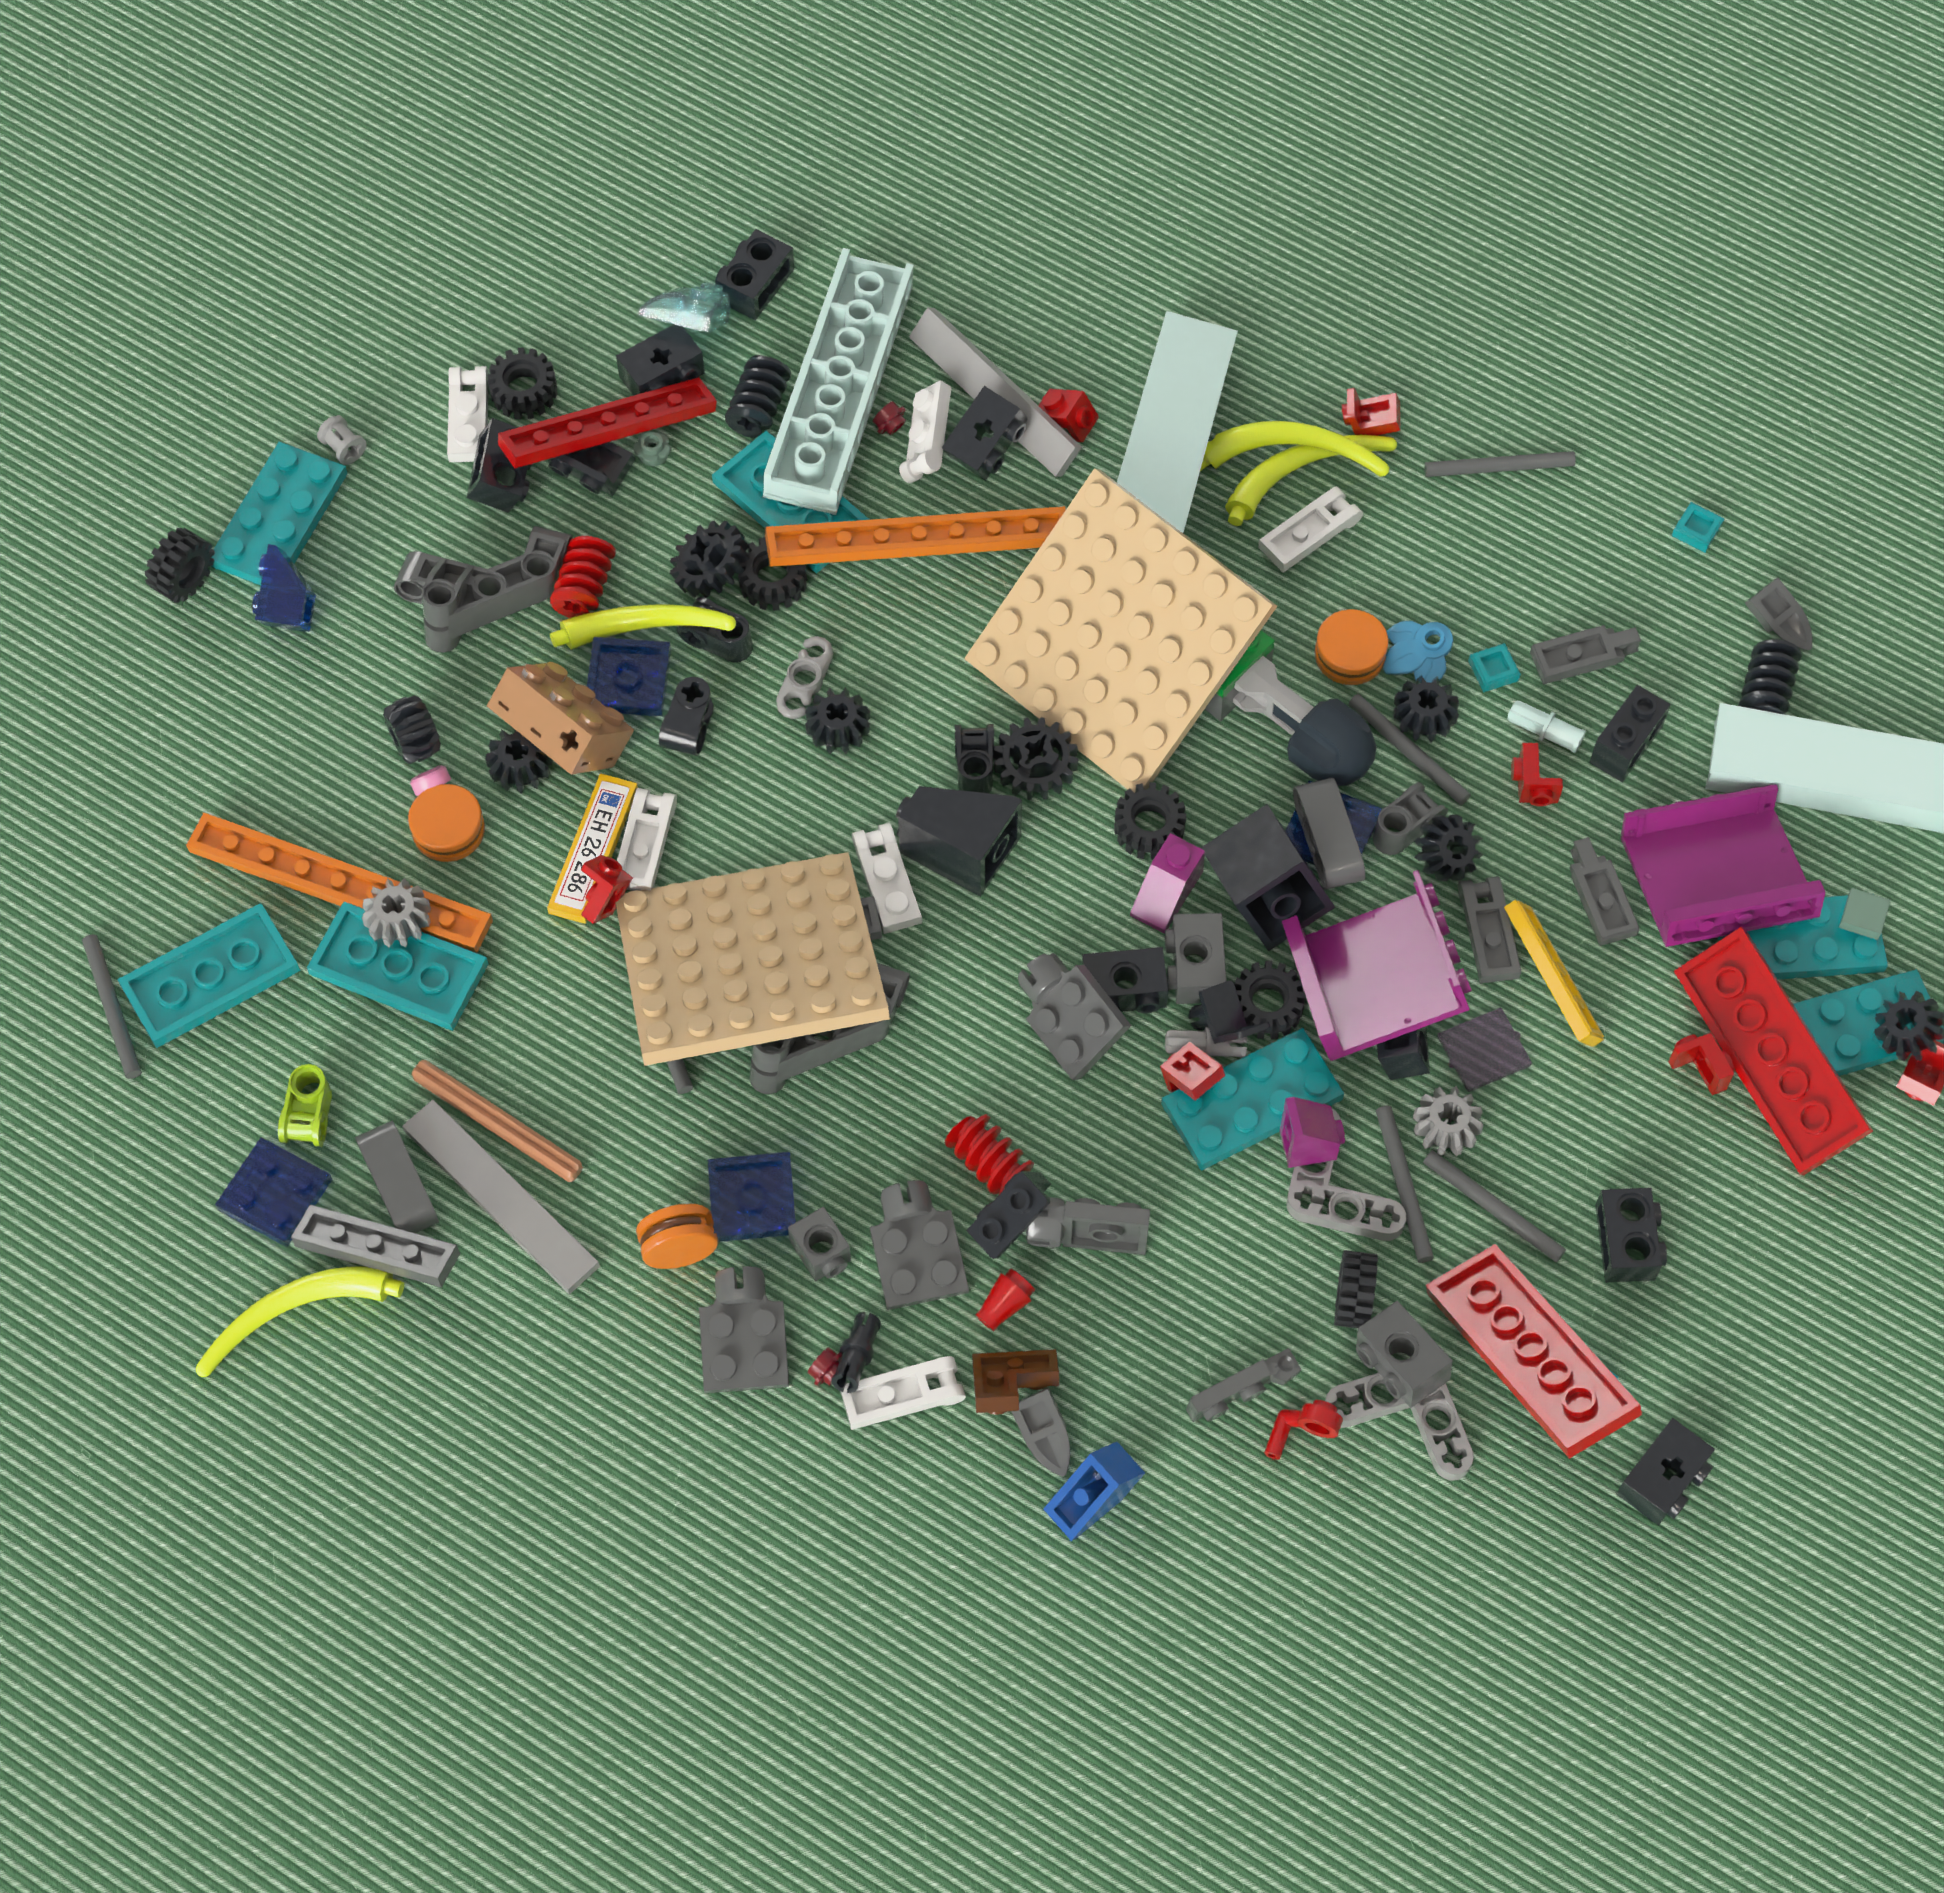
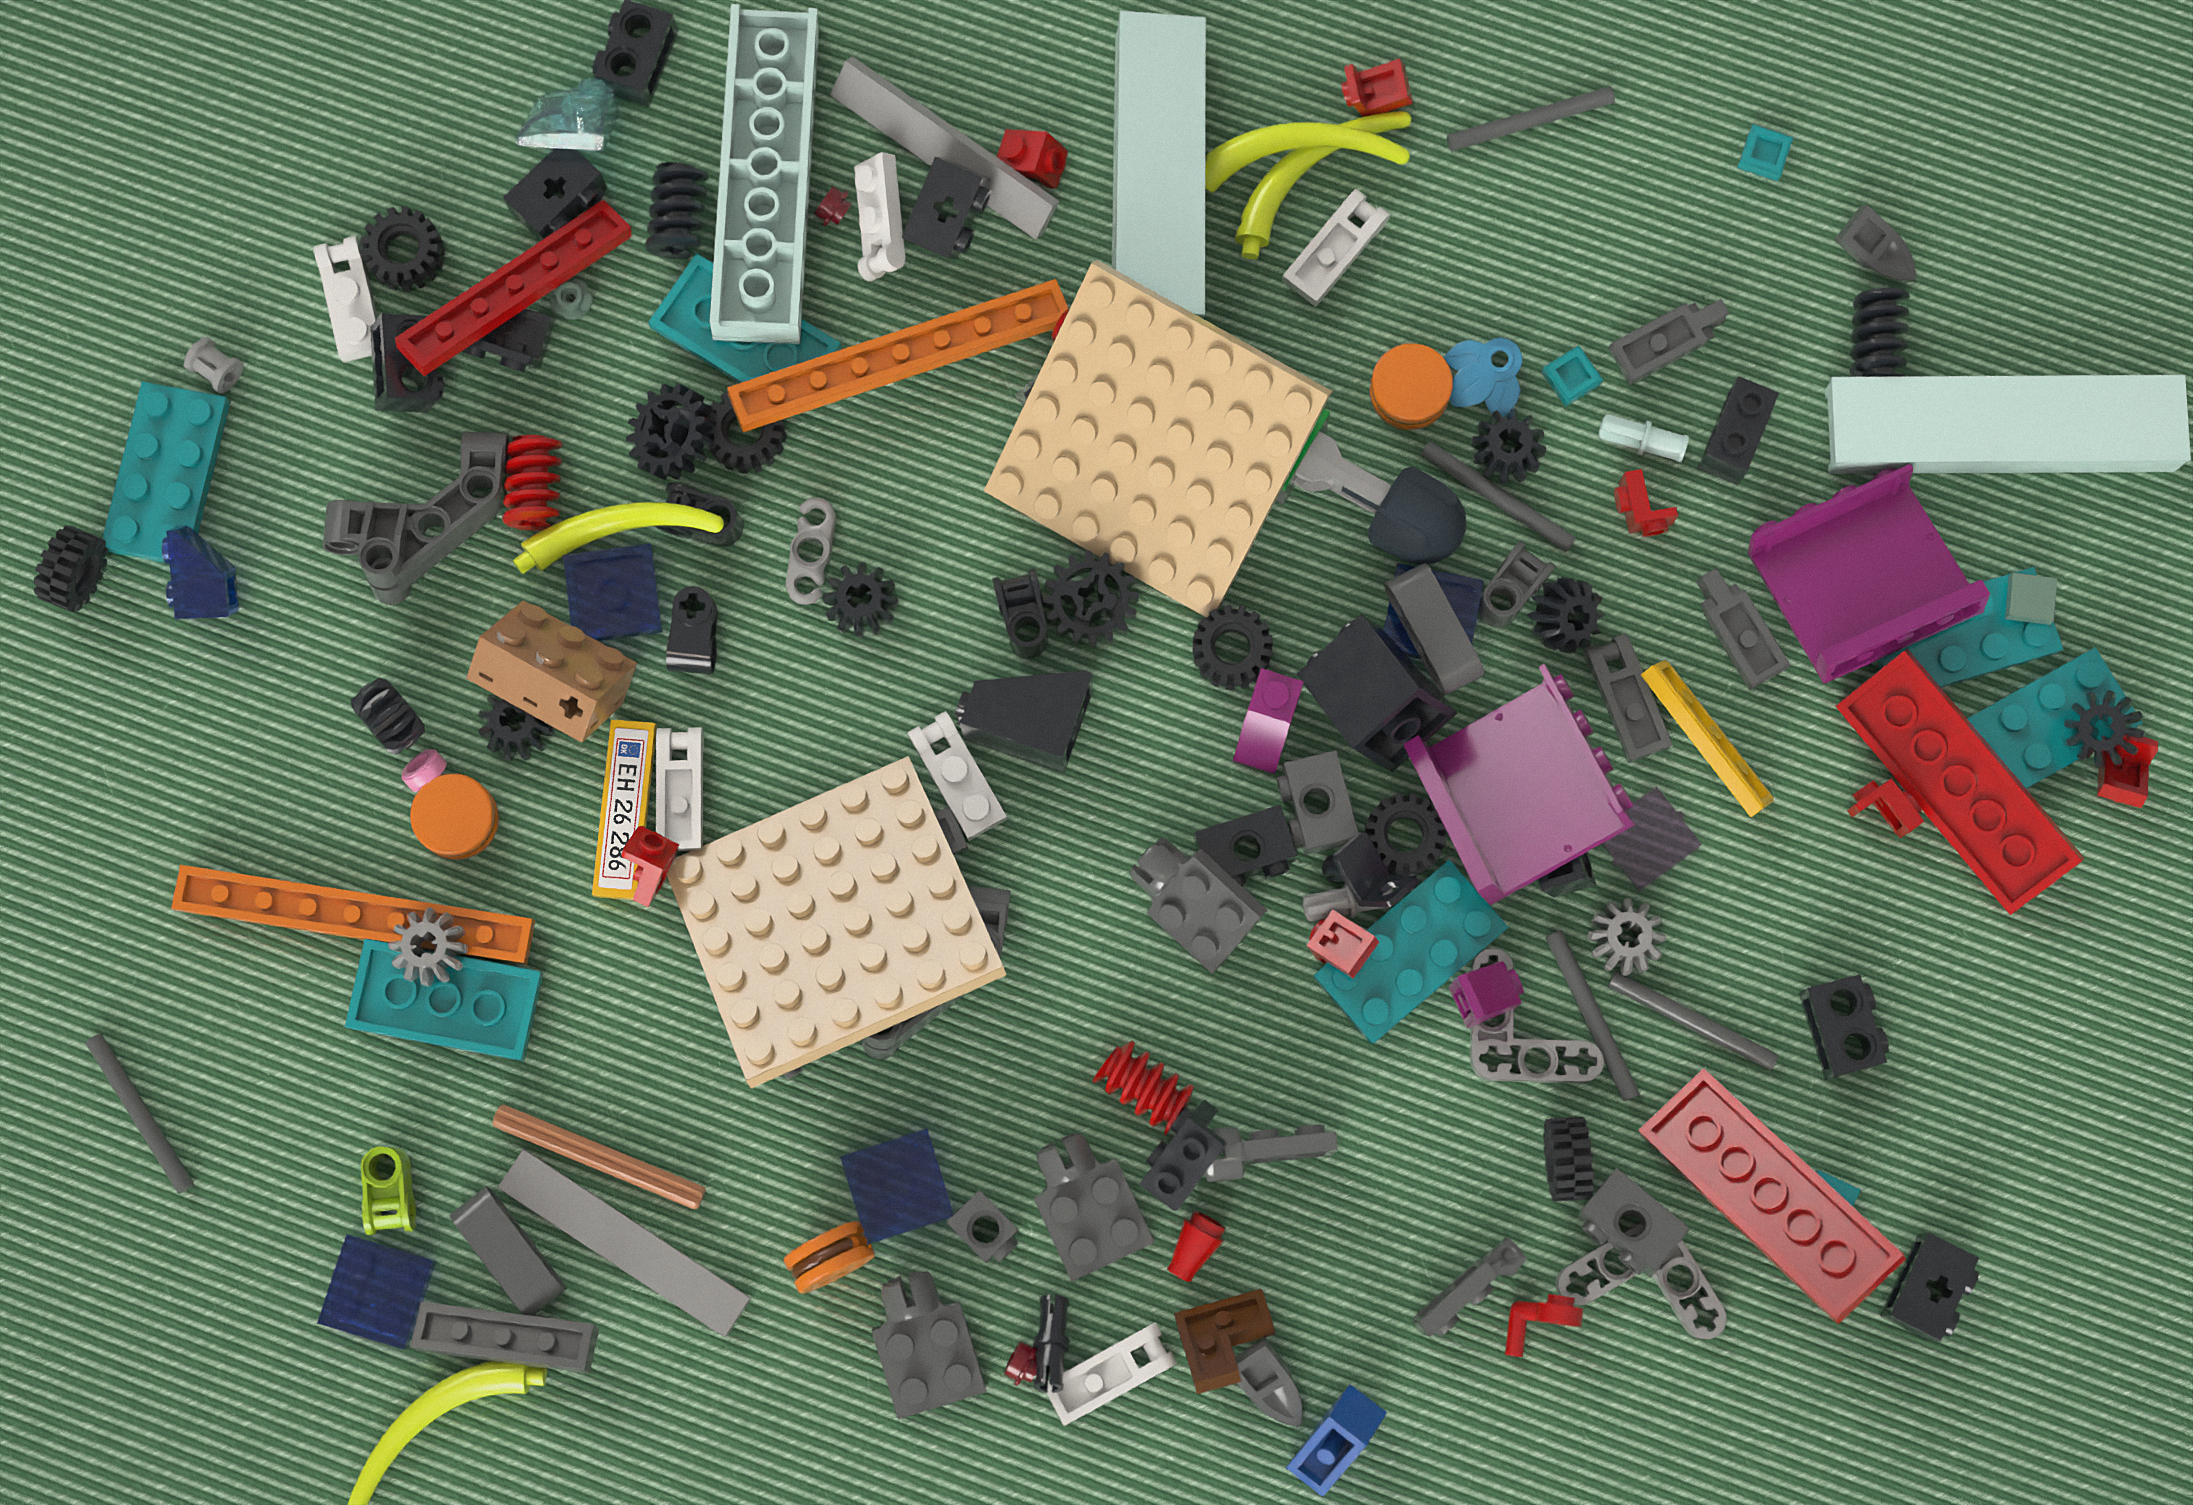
camera: 10 degrees left, 15 degrees up
(208, 975) = (237, 1056): teal plate -> none

